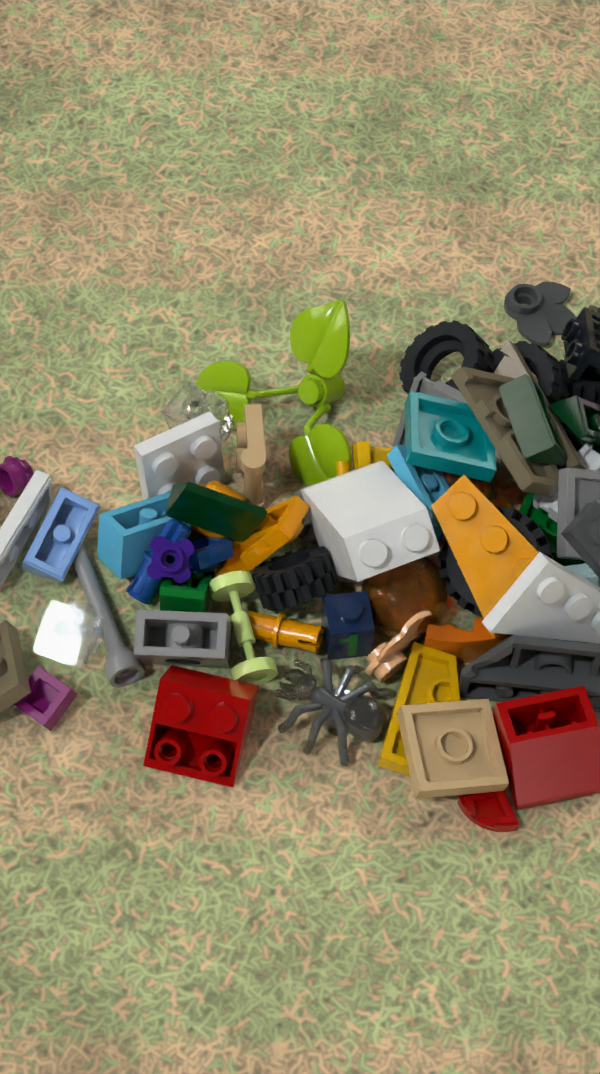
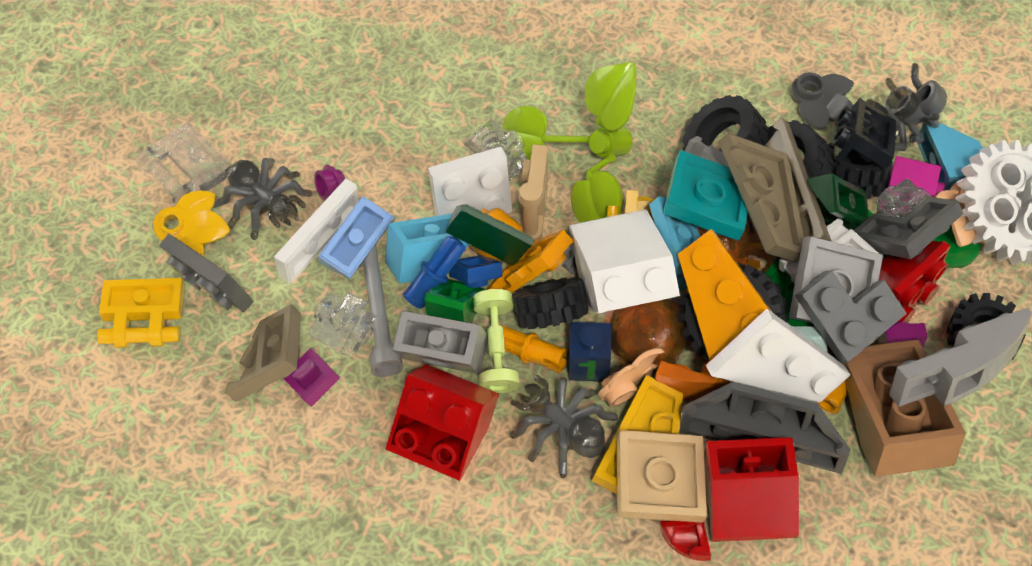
camera: 15 degrees right, 0 degrees up
(161, 549) = (447, 280): dark purple plate -> none
(532, 421) = (787, 191): slope -> none

